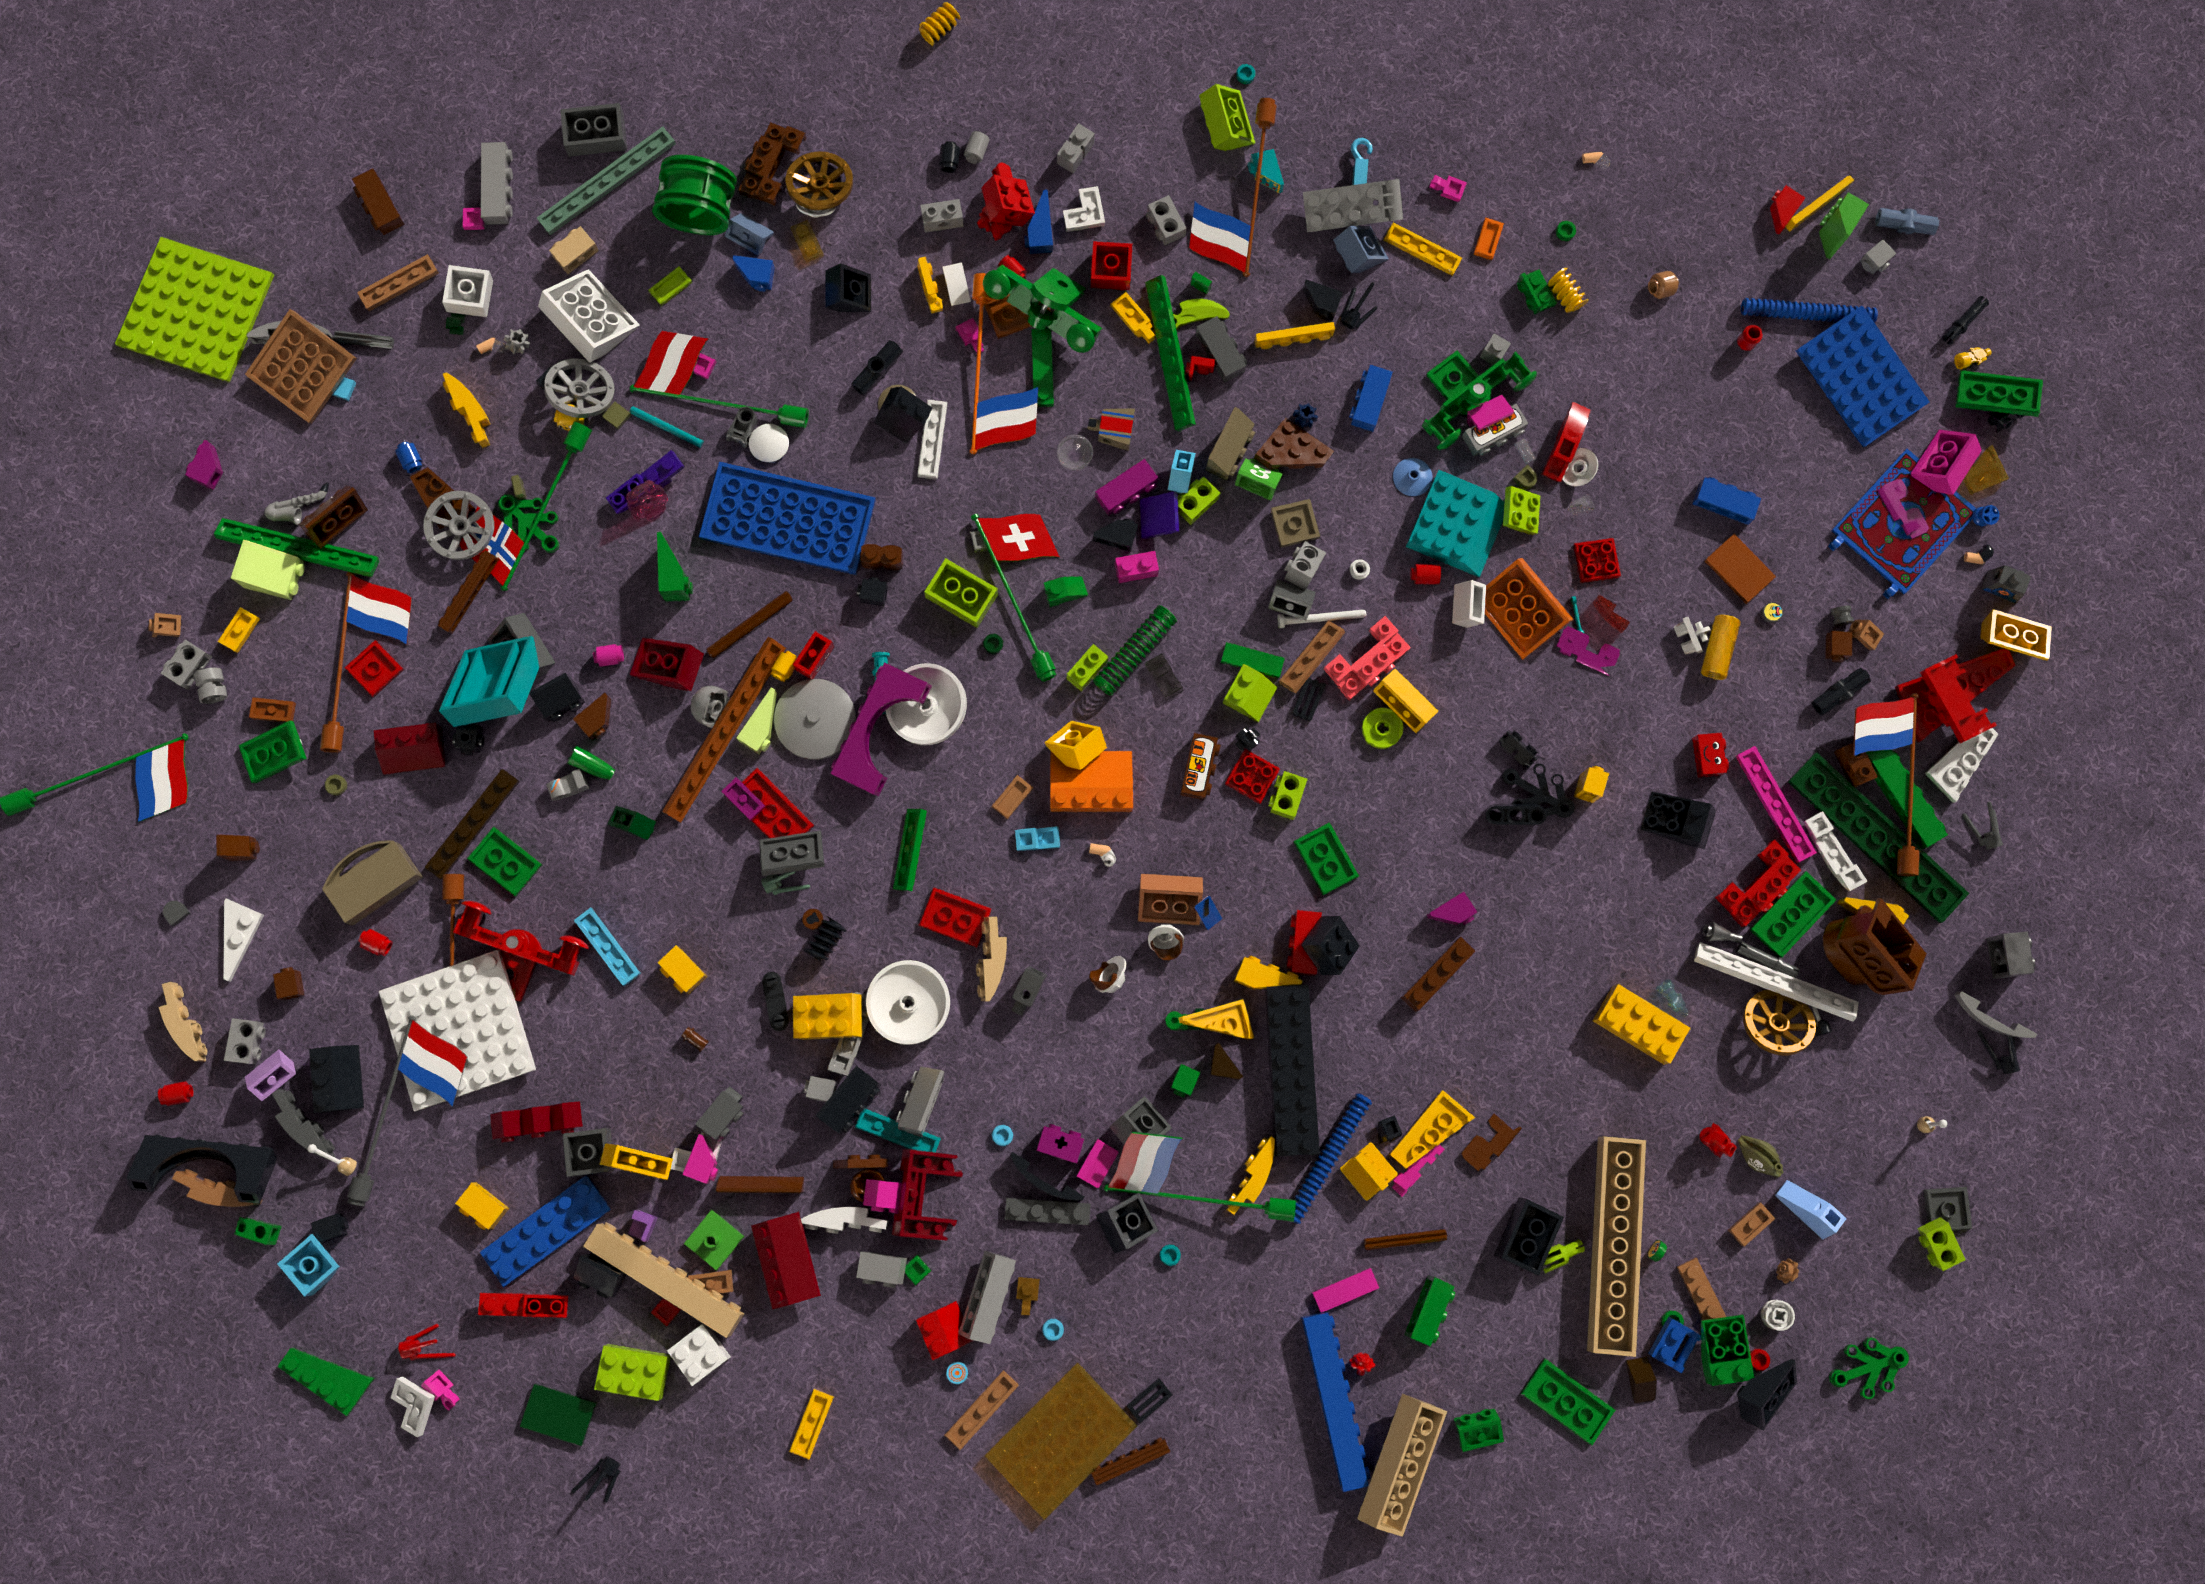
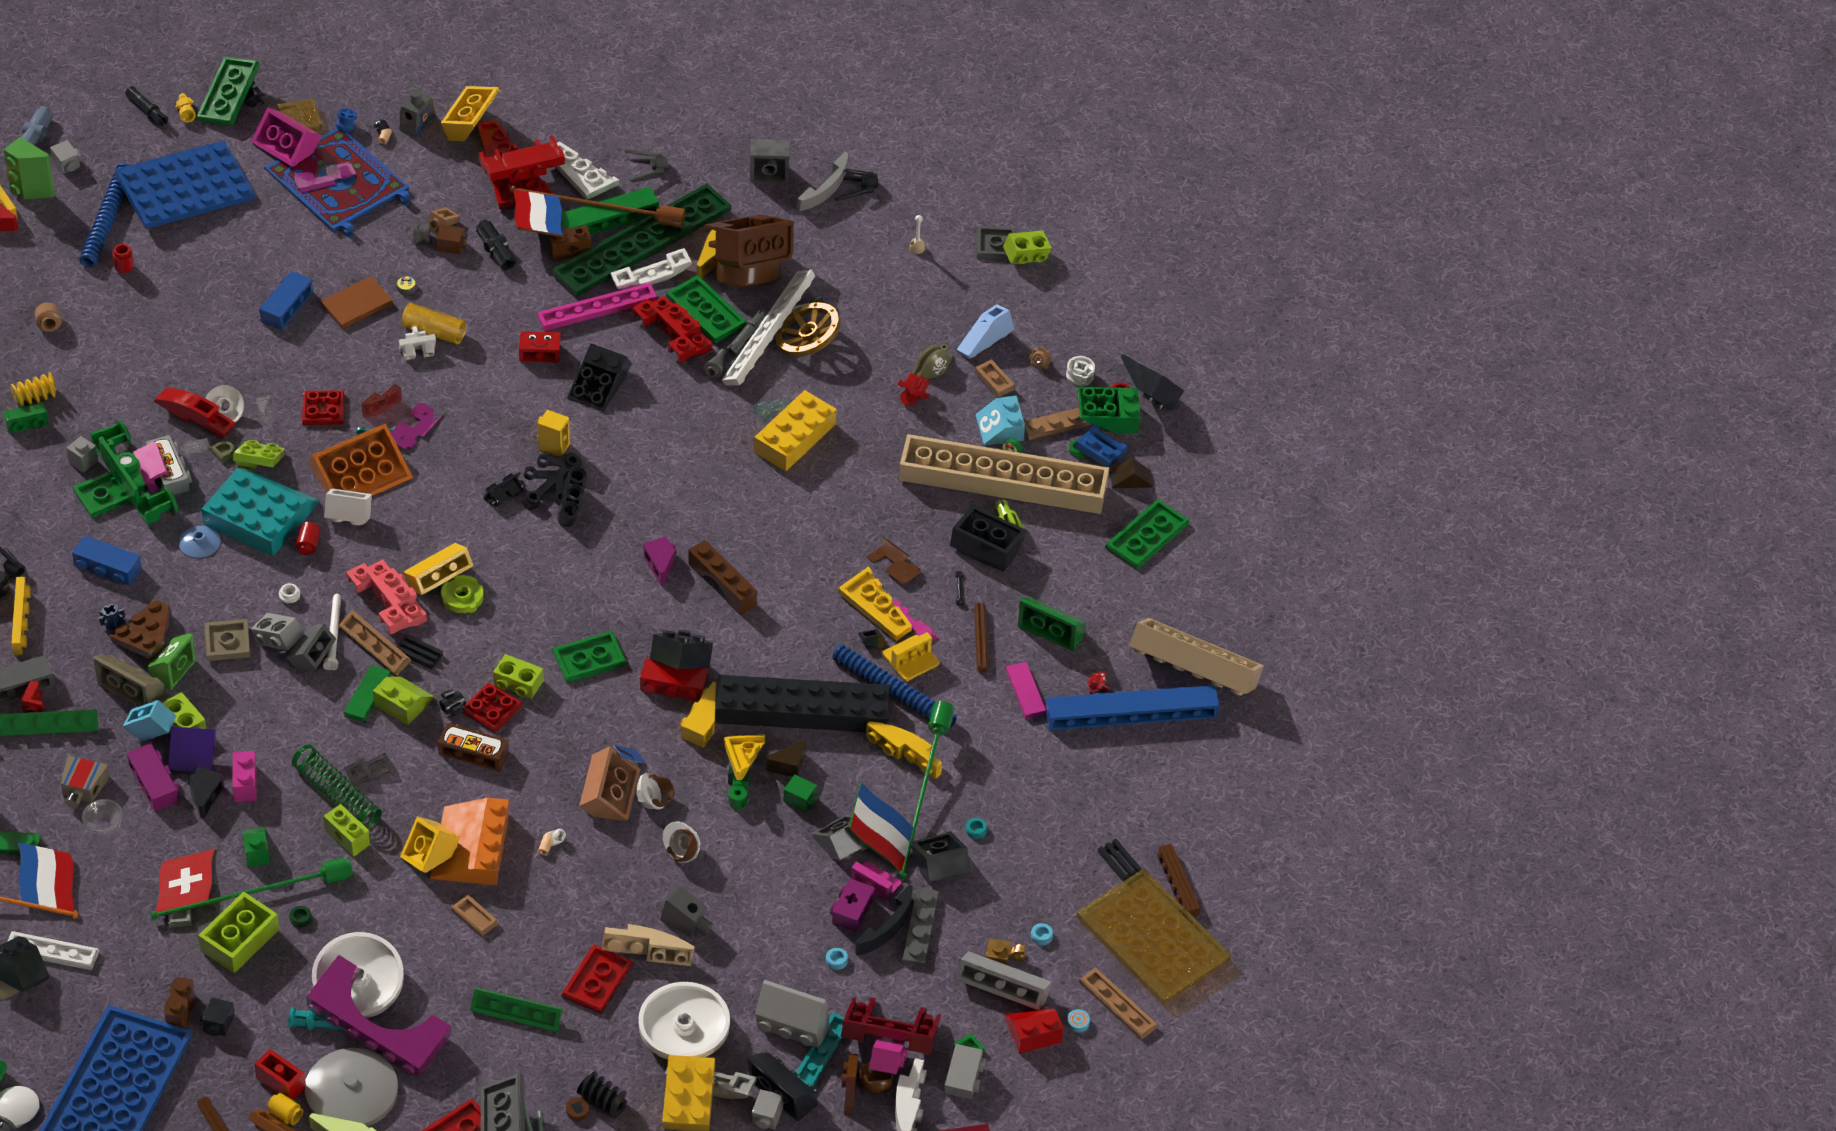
camera: 80 degrees left, 30 degrees down
(1037, 838) = (524, 896): medium azure slope -> none
(1479, 1429) = (1168, 600): green bracket -> none
(1484, 1210) = (959, 575): none -> black hinge
(1690, 1235) = (1001, 421): none -> medium azure slope
(1872, 1367) = (1128, 297): green plant -> none

